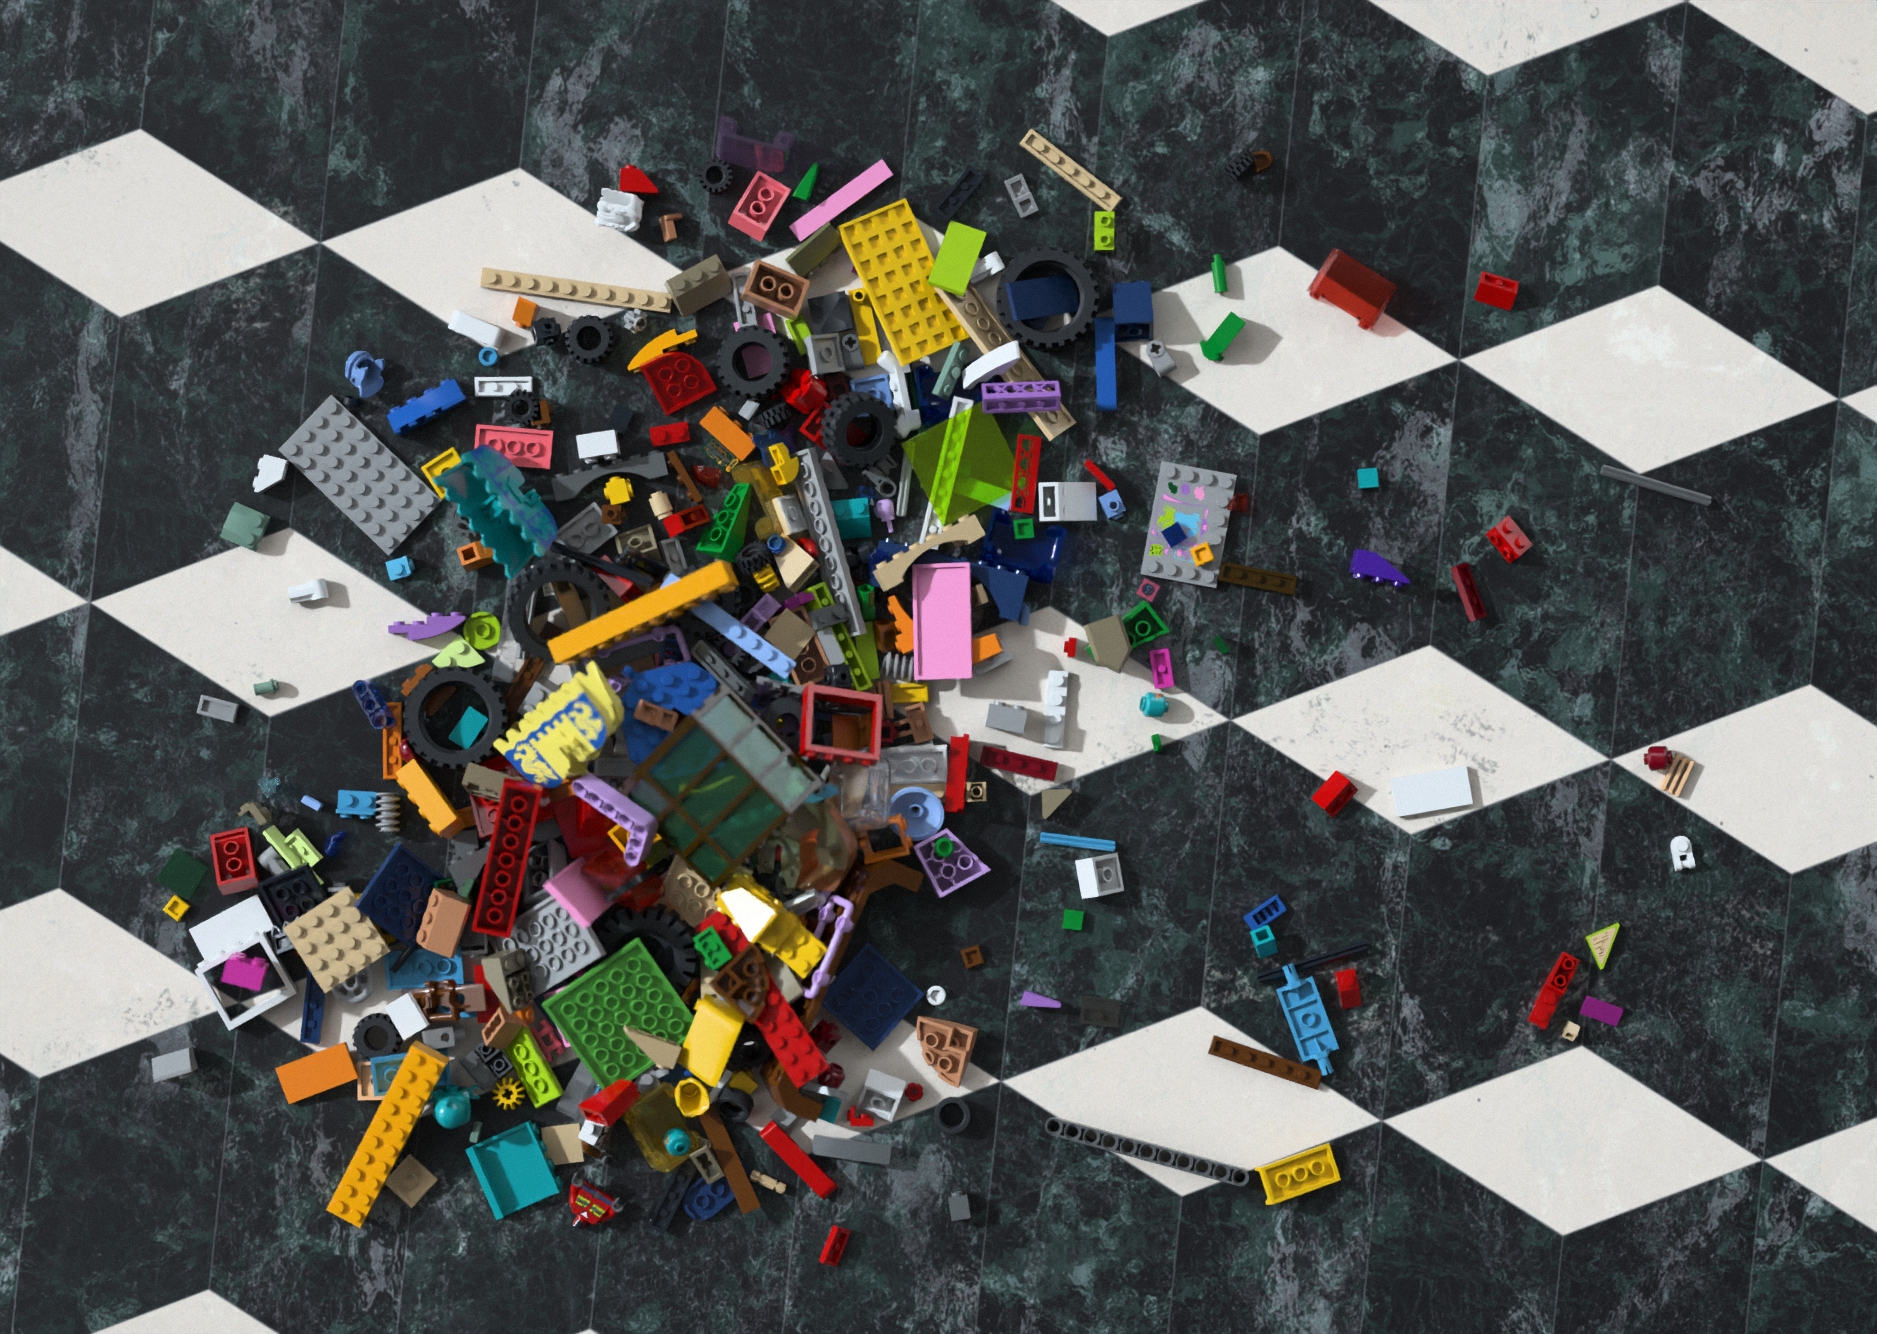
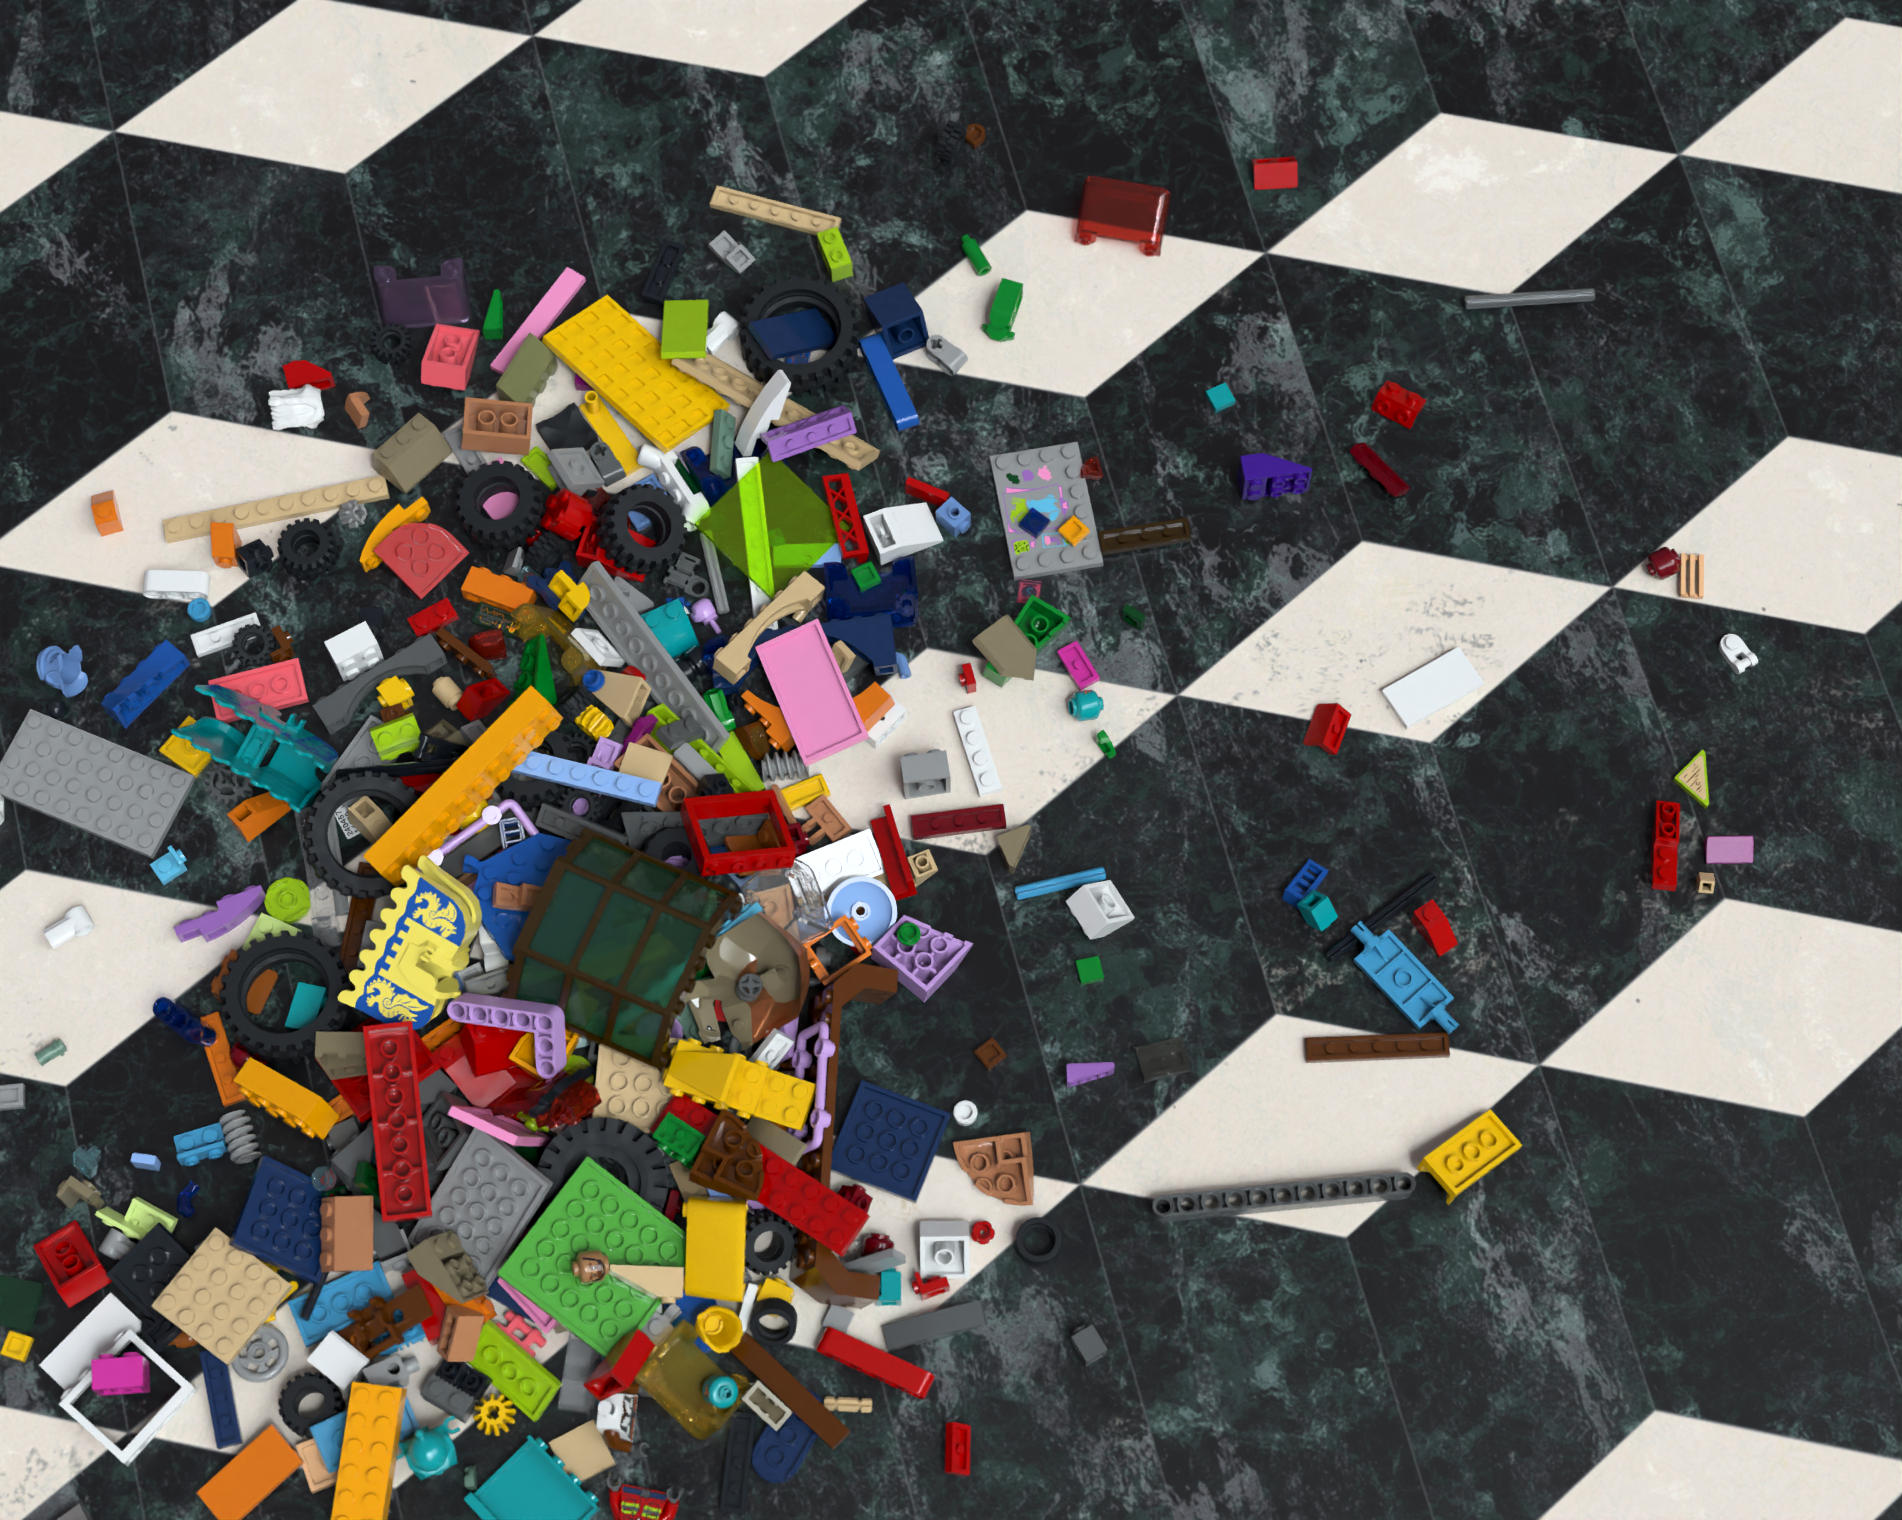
camera: 20 degrees left, 20 degrees down
(439, 873) = (323, 1178): none -> clear light blue tile
(440, 242) = (106, 513): none -> orange slope
(607, 533) = (396, 737): none -> lime bracket
(612, 1024) = (590, 1266): none -> medium nougat head
(809, 852) = (750, 982): none -> dark grey wheel

